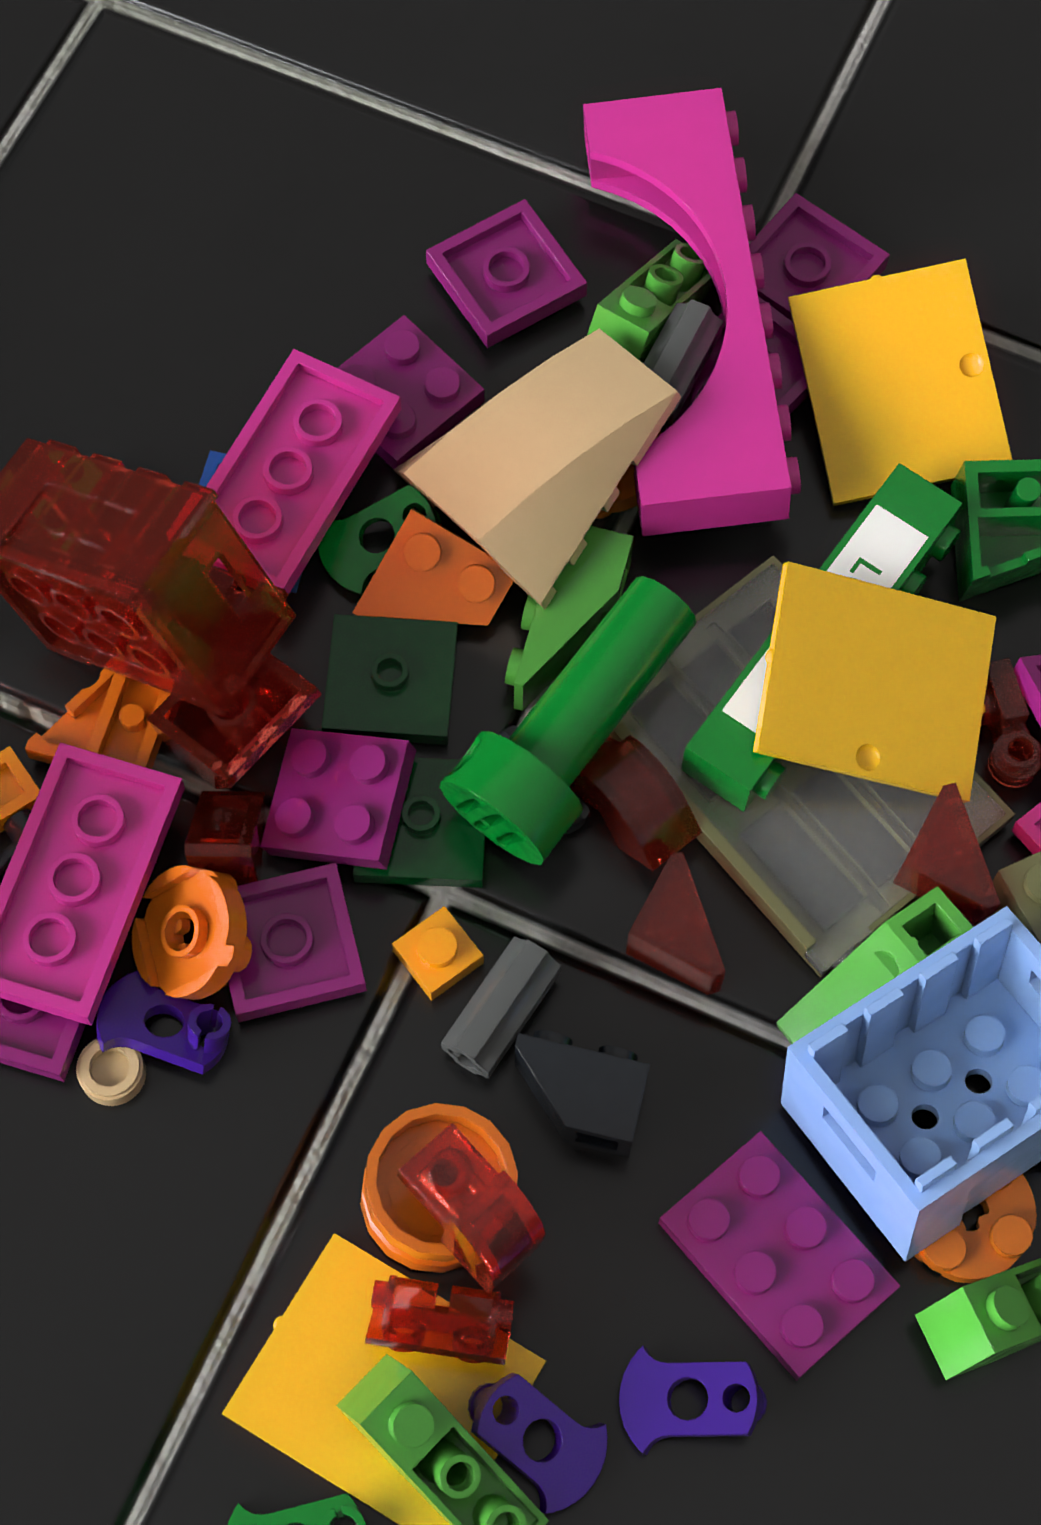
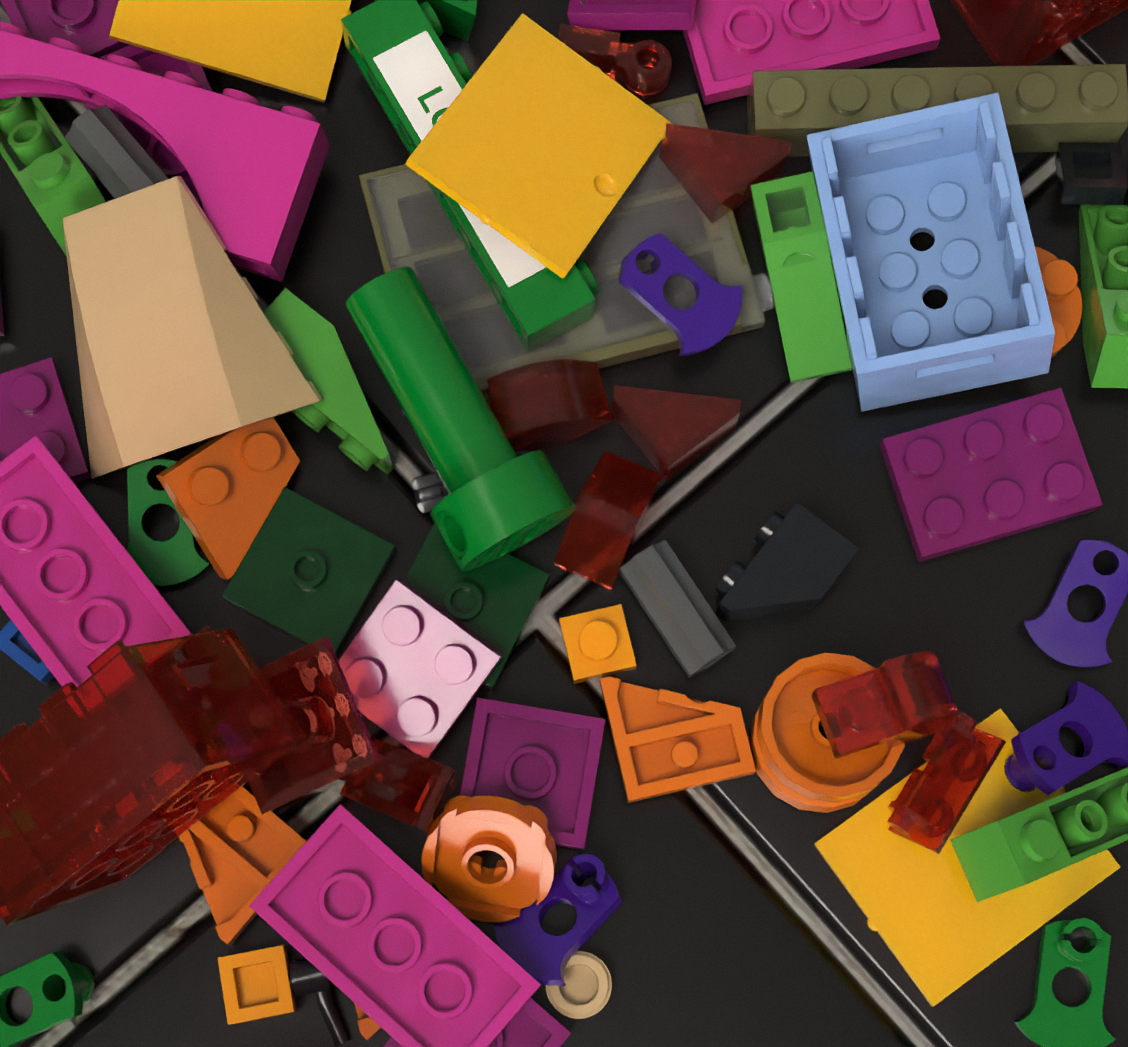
camera: 65 degrees left, 10 degrees up
(372, 1052) = (673, 740): none -> orange wing
(563, 908) = (607, 519): none -> clear red slope
(797, 912) = (715, 304): none -> dark purple piece

